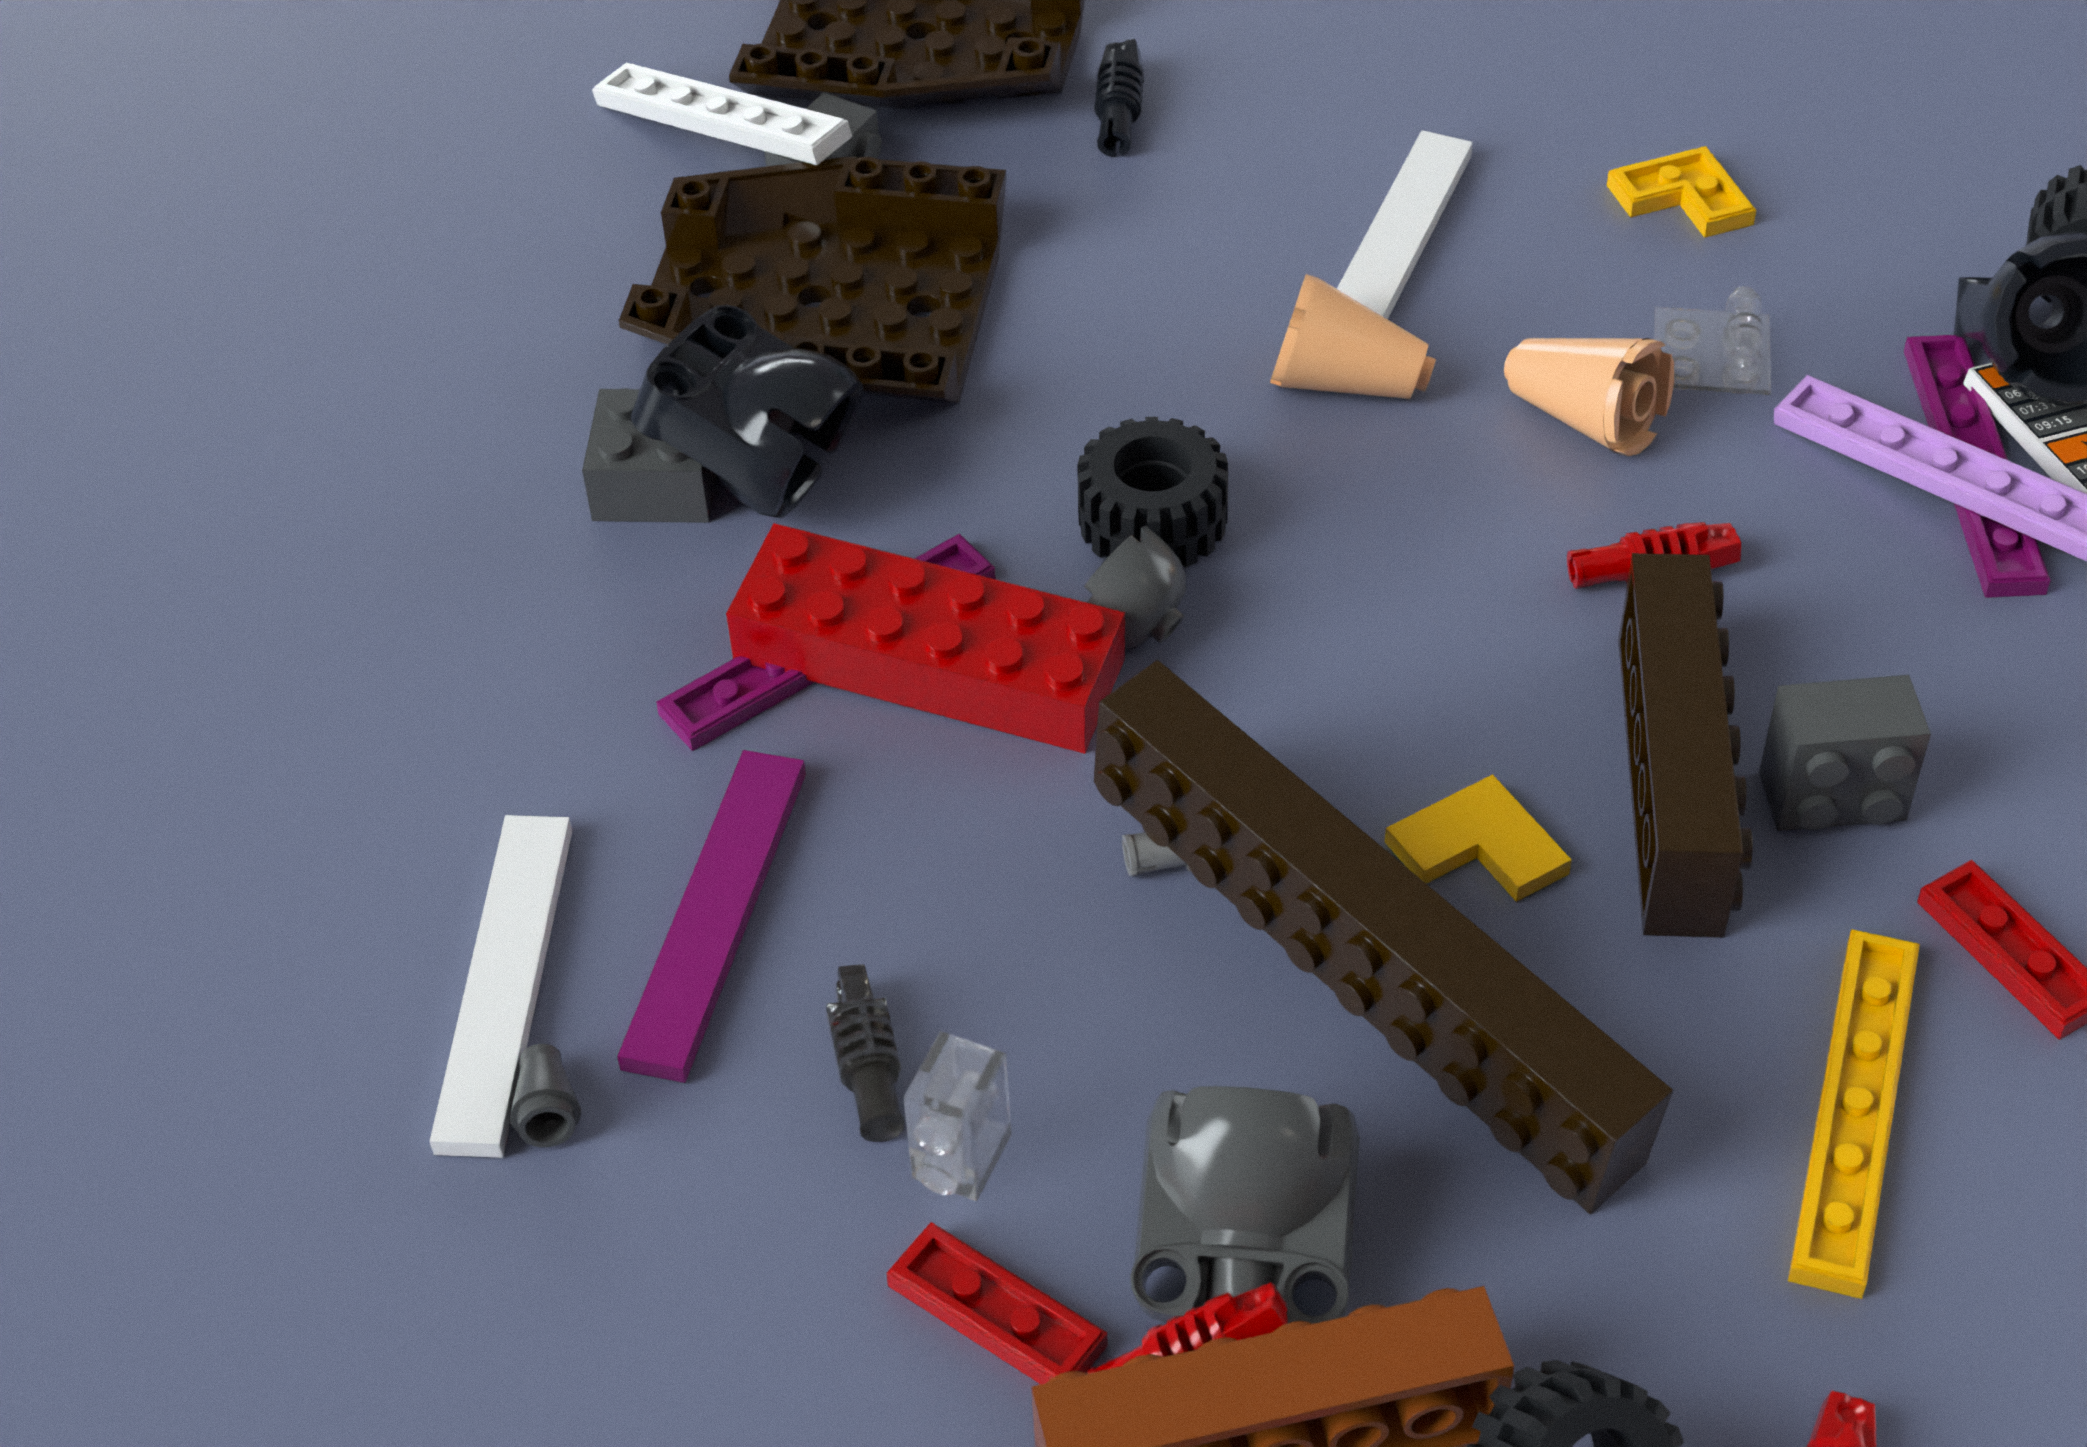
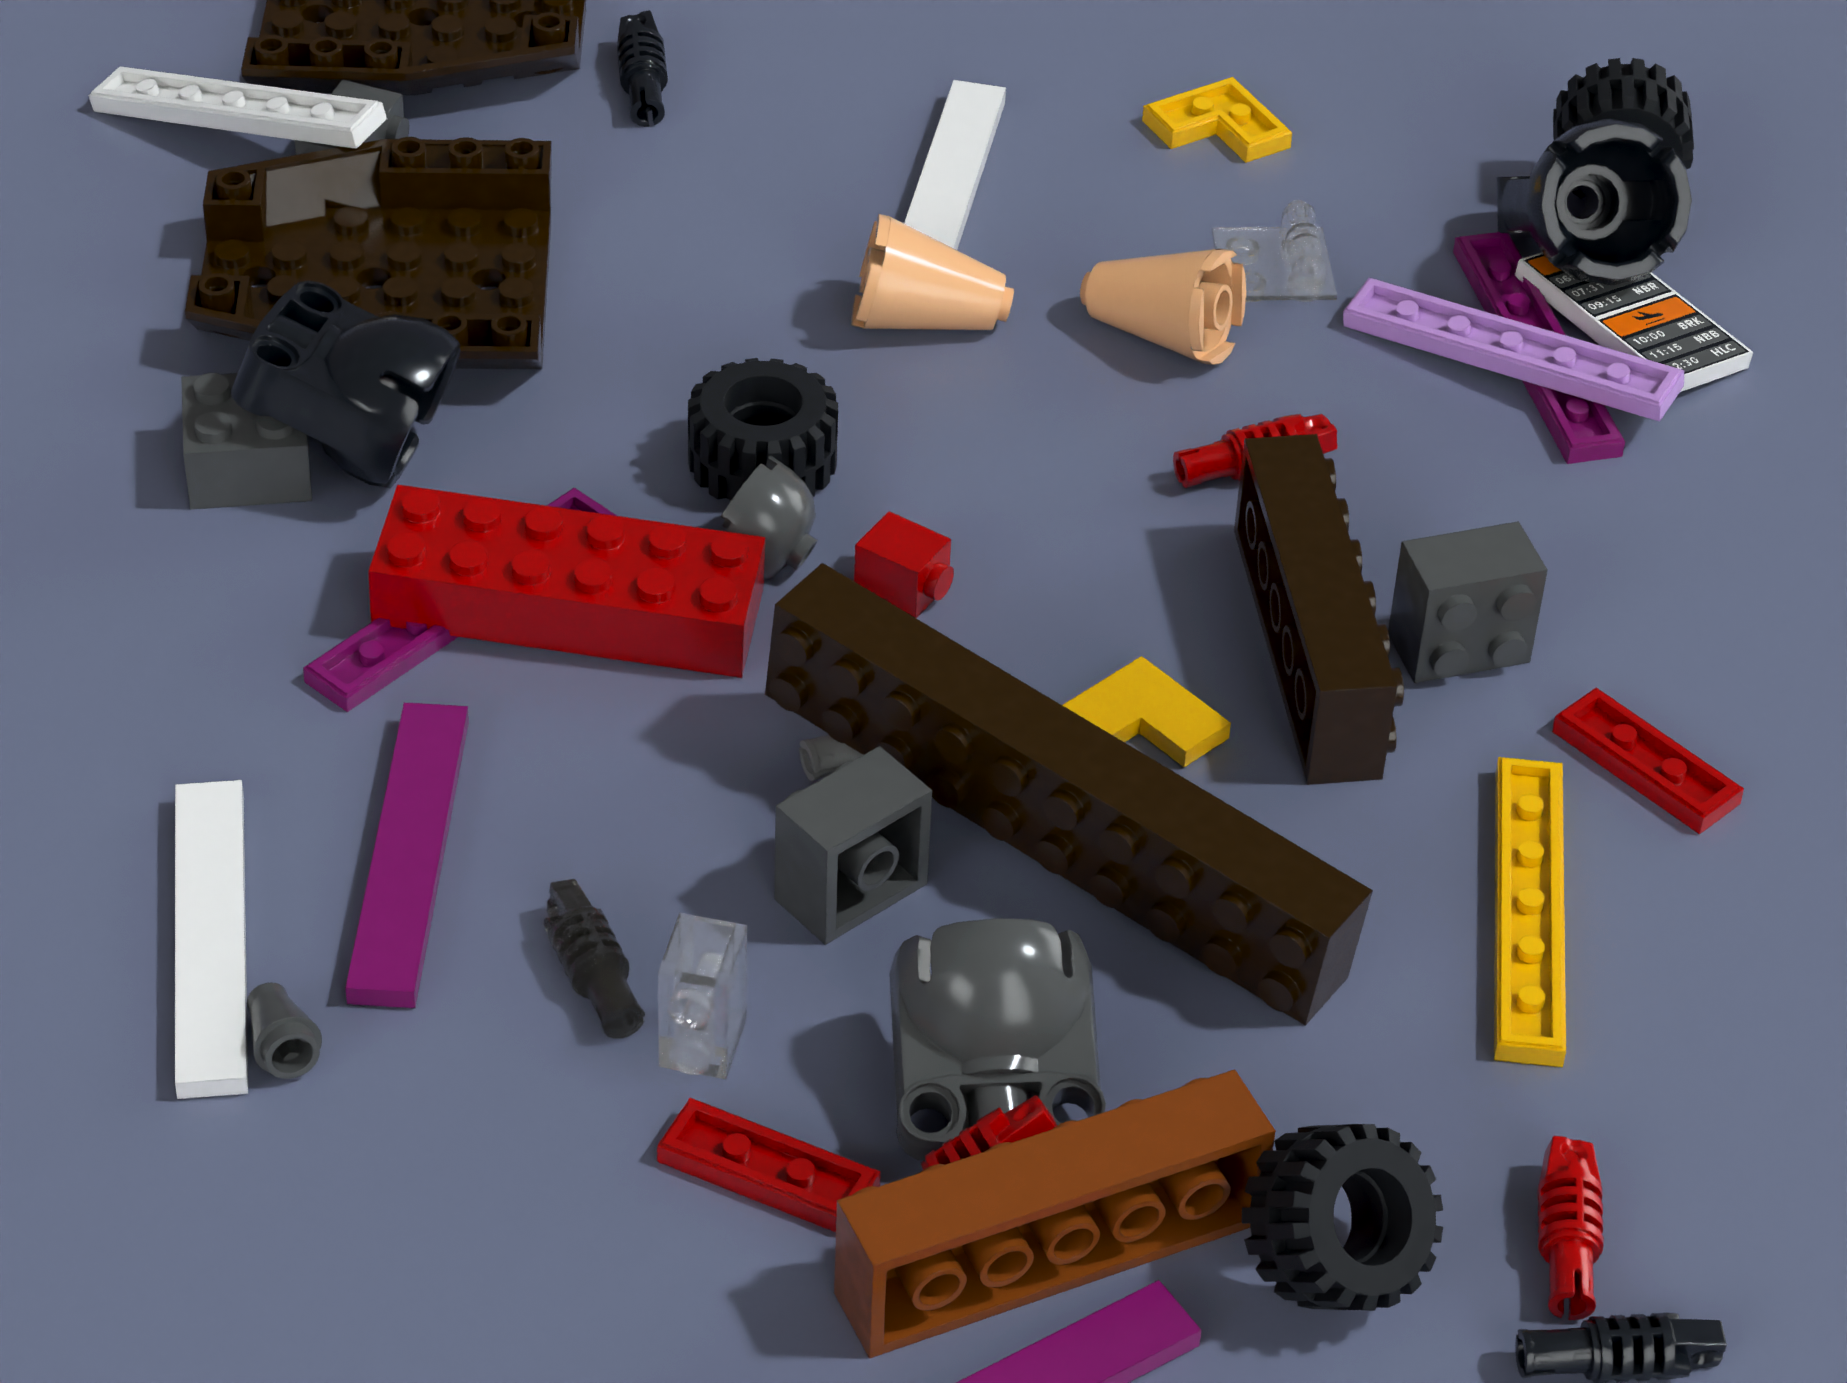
camera: 15 degrees left, 5 degrees down
(1145, 961) = (852, 844): none -> dark grey brick
(1266, 649) = (904, 563): none -> red brick

